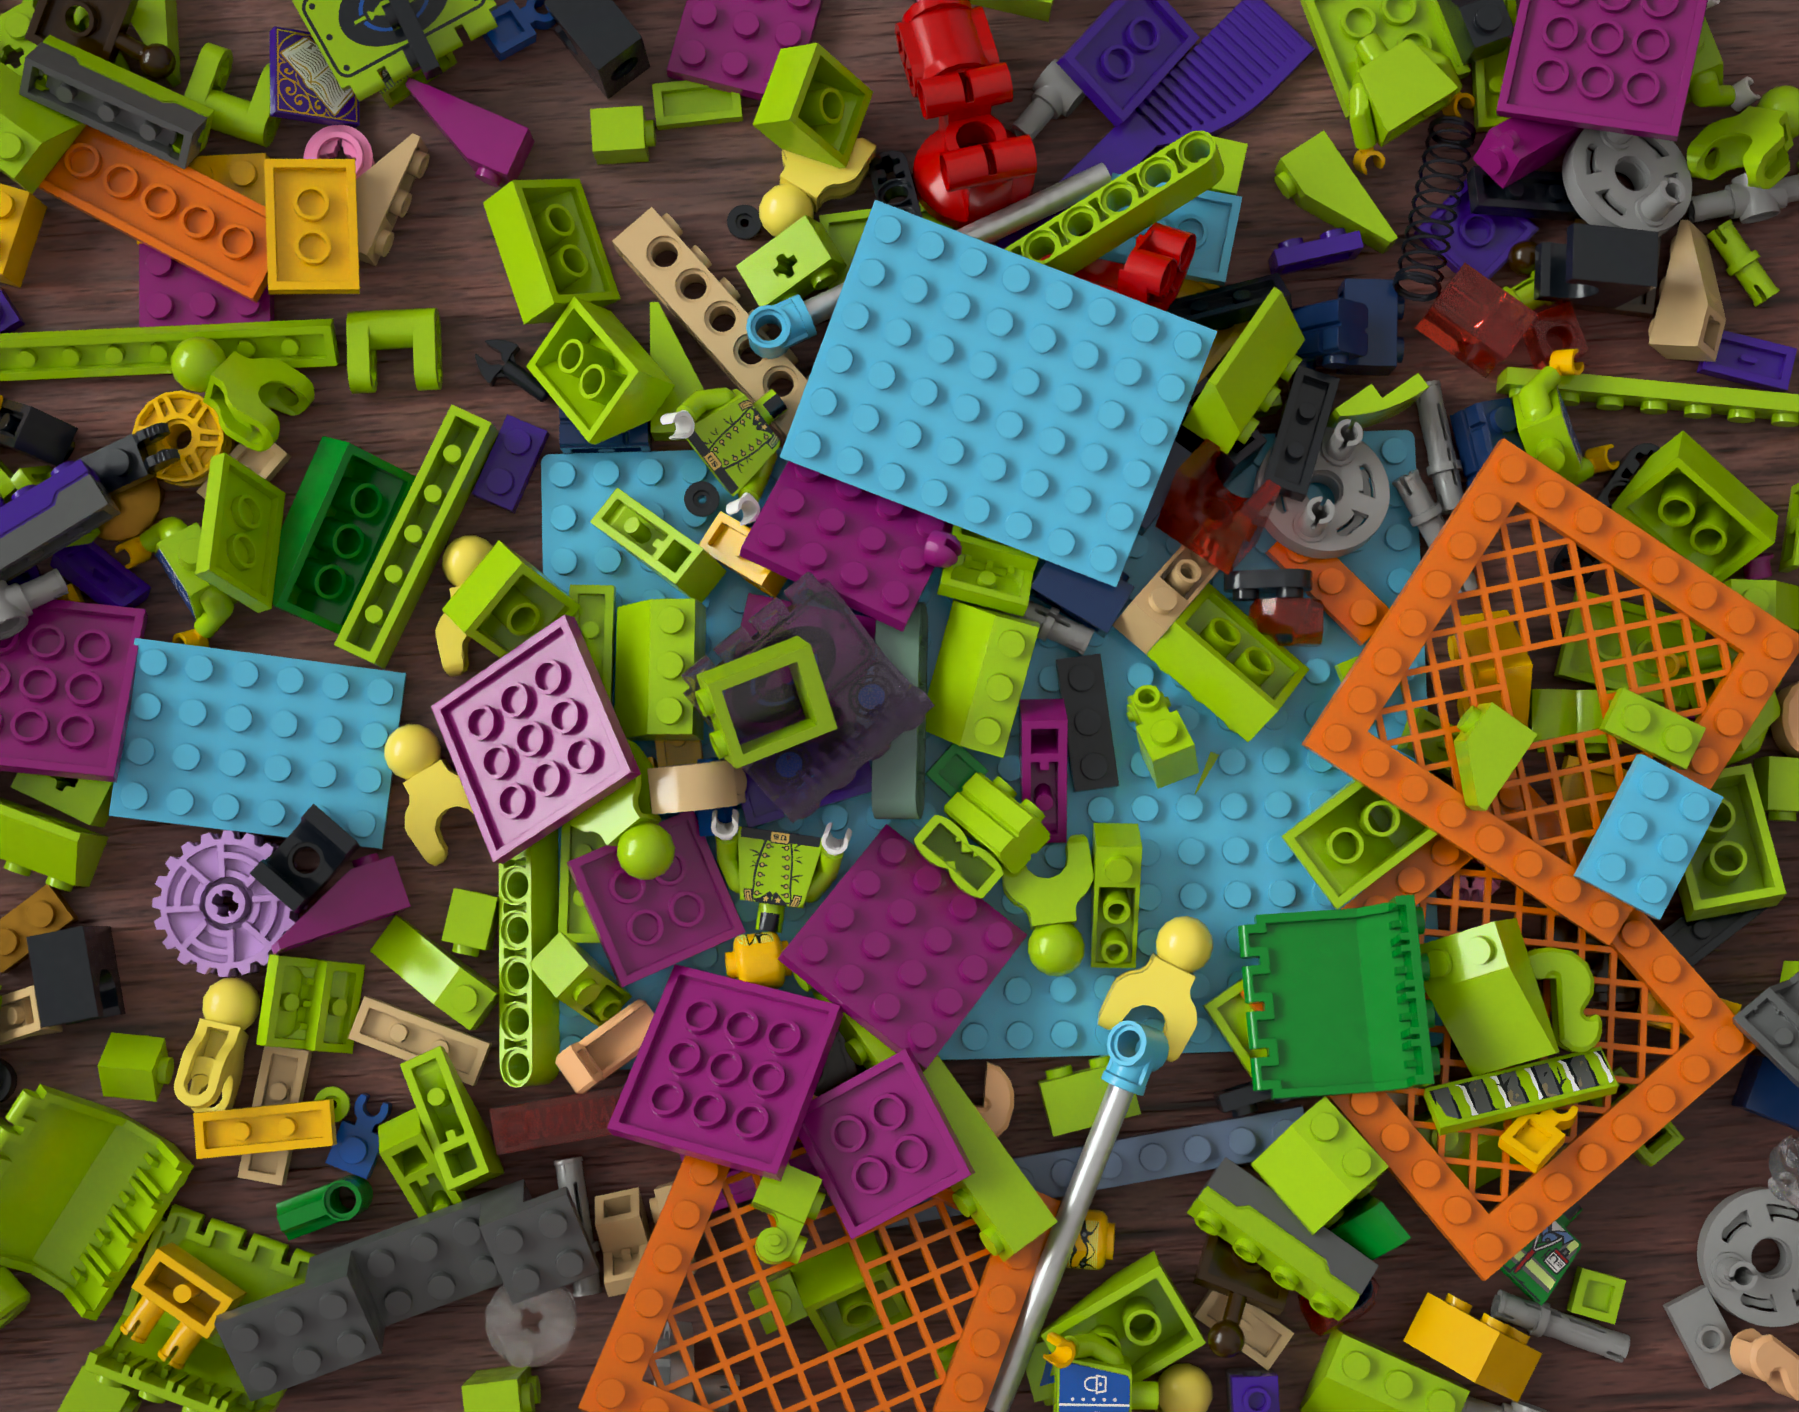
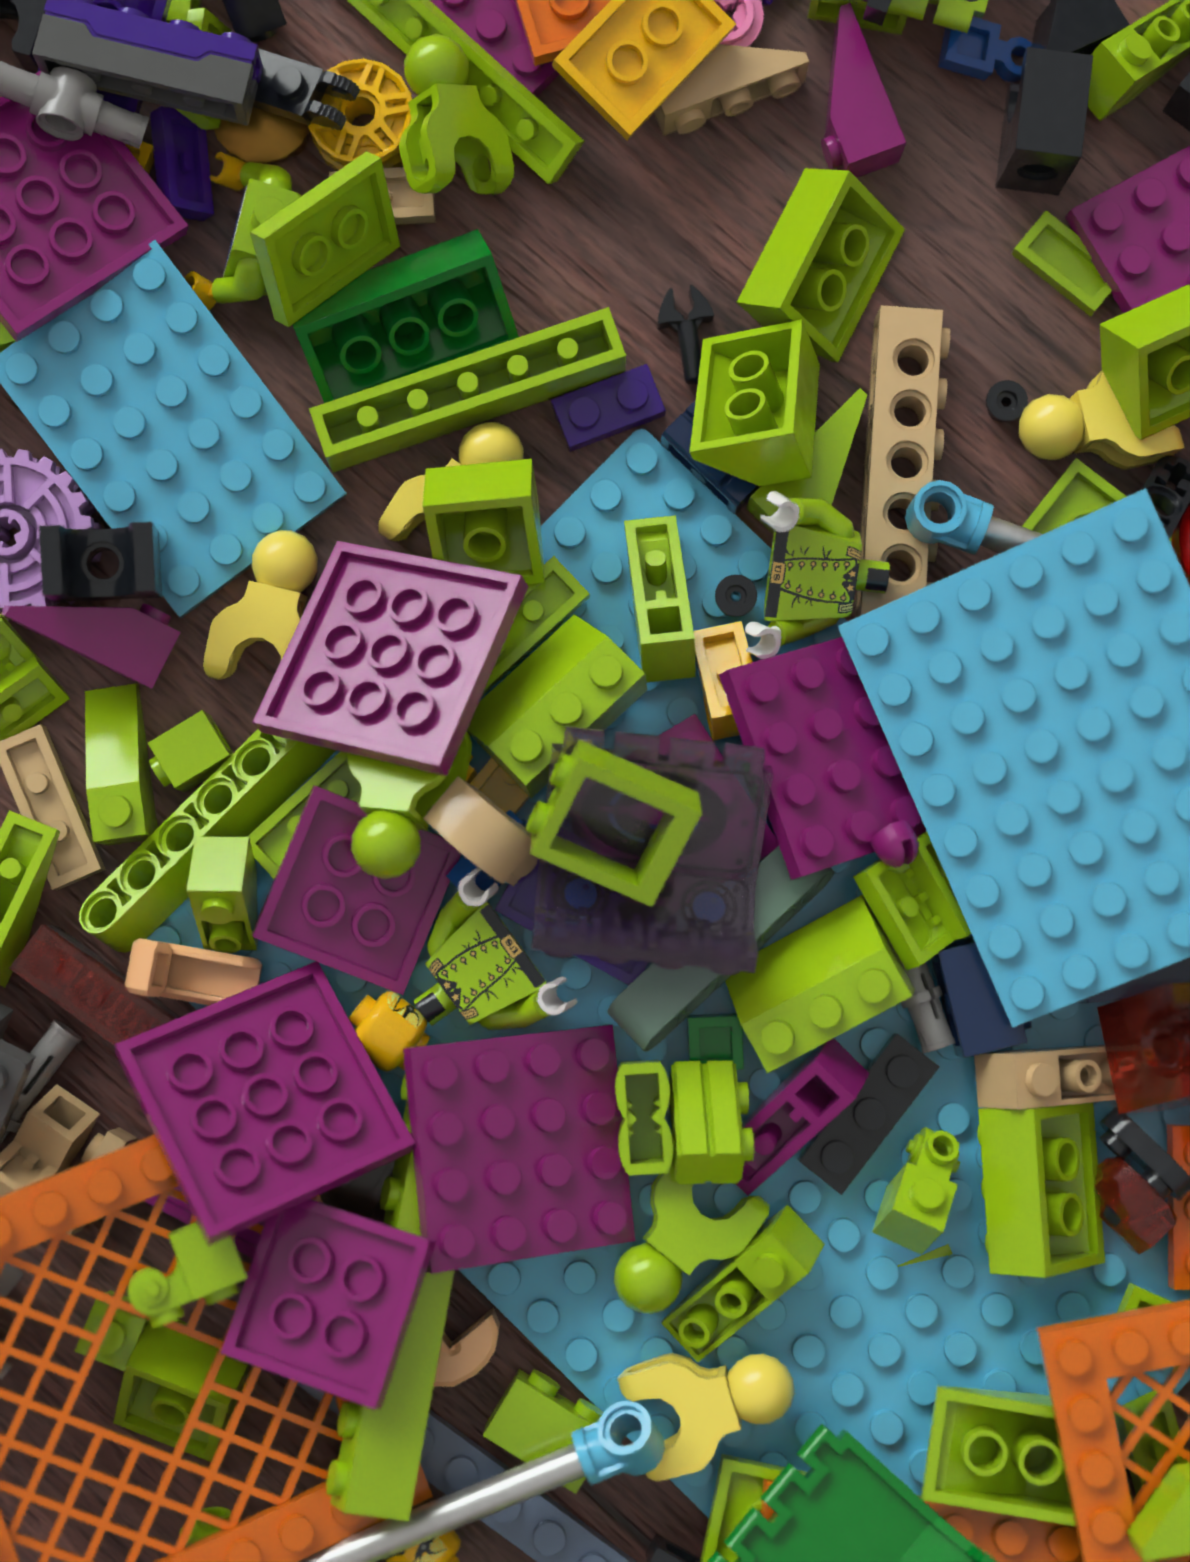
camera: 45 degrees right, 0 degrees up
(394, 330) = (622, 198): lime connector -> none
(621, 135) = (977, 226): lime brick -> none
(771, 266) = (1030, 467): lime brick -> none

